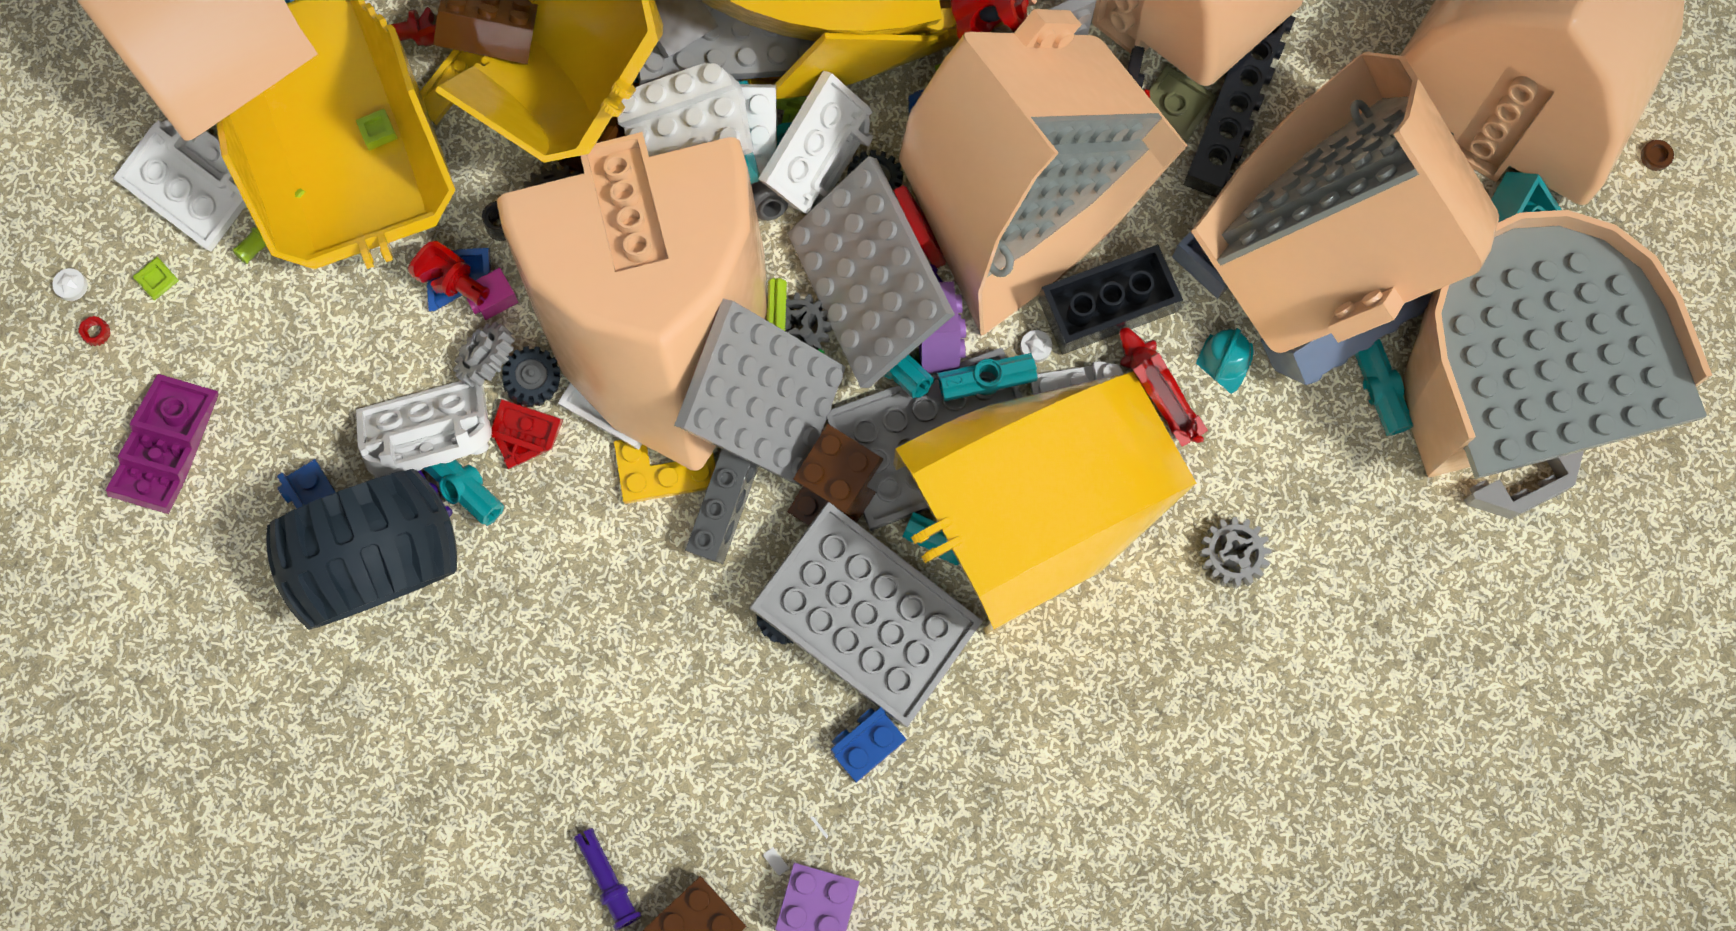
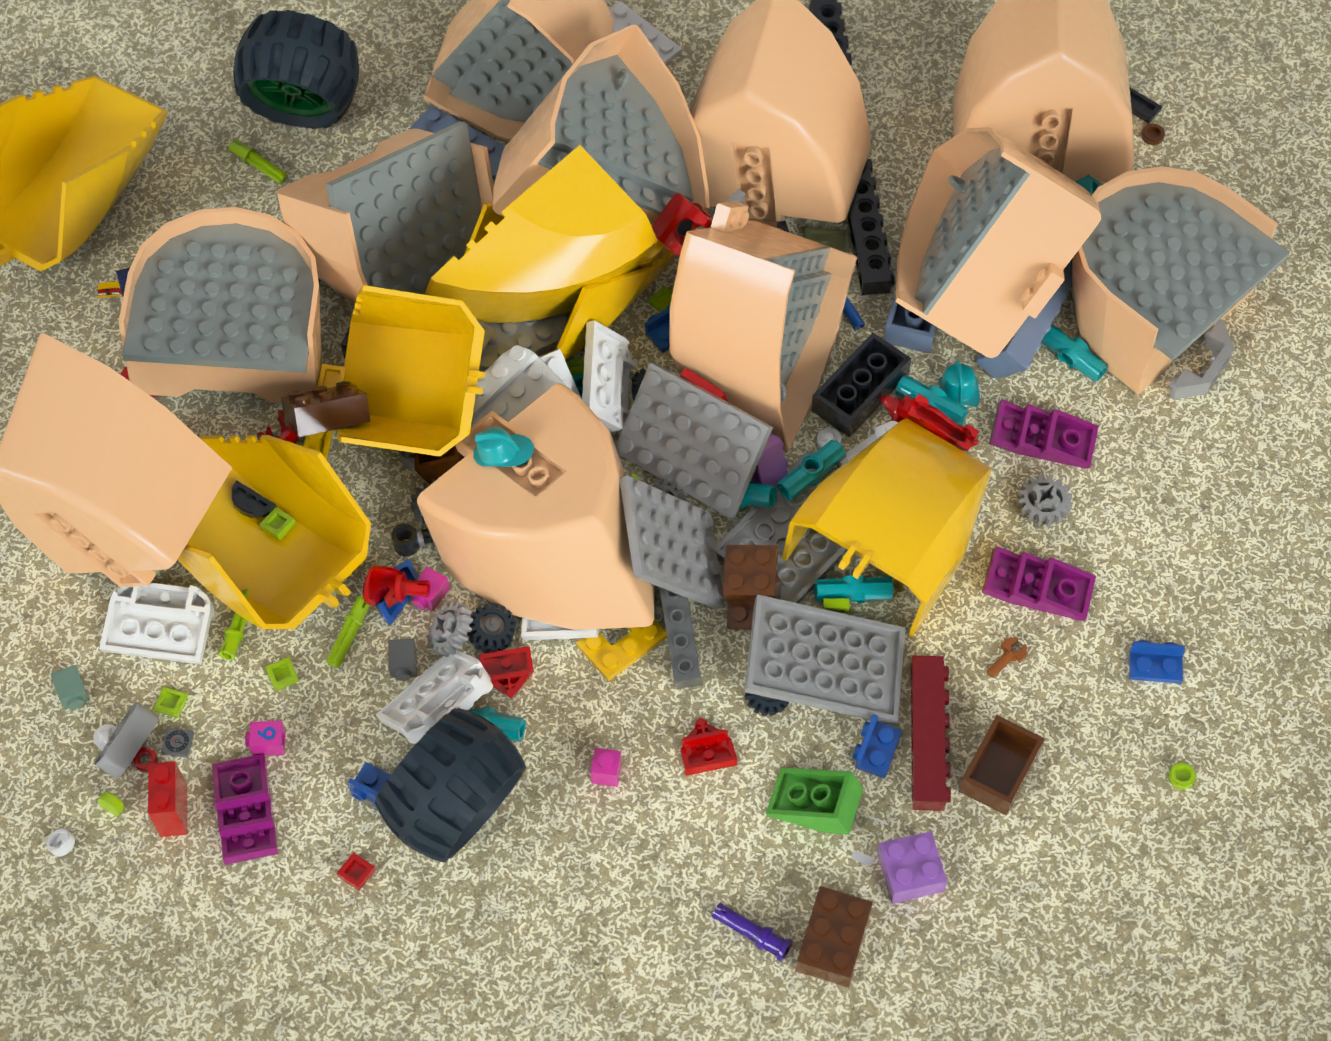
camera: 25 degrees left, 15 degrees down
(31, 363) = (111, 803): none -> lime tile
(60, 207) = (70, 687): none -> sand green brick
(80, 394) = (167, 799): none -> red brick
(82, 300) = (126, 740): none -> light grey beam
(137, 329) = (177, 742): none -> dark grey tile
(226, 376) = (266, 738): none -> dark pink brick
(235, 579) = (356, 871): none -> red plate
(286, 308) = (282, 674): none -> lime tile
(359, 88) = (250, 502): none -> black plate
(377, 300) = (348, 632): none -> lime axle
(417, 361) = (402, 659): none -> dark grey brick
(559, 606) = (606, 767): none -> dark pink brick
(619, 189) = (500, 448): none -> teal piece
(682, 643) = (707, 749): none -> red slope
(762, 768) = (816, 799): none -> bright green slope
(914, 552) = (836, 605): none -> lime tile
(931, 760) = (928, 733): none -> dark red brick
(987, 844) = (1001, 765): none -> reddish brown piece
(1077, 716) = (1007, 656): none -> dark orange bar
(1156, 202) = (852, 315): none -> blue piece
(1167, 649) = (1039, 583): none -> magenta slope
(1181, 360) = (936, 398): none -> teal piece
(1241, 816) = (1156, 662): none -> blue bracket
(1286, 470) = (1044, 434): none -> magenta slope
(1666, 110) = (1143, 107): none -> black tile

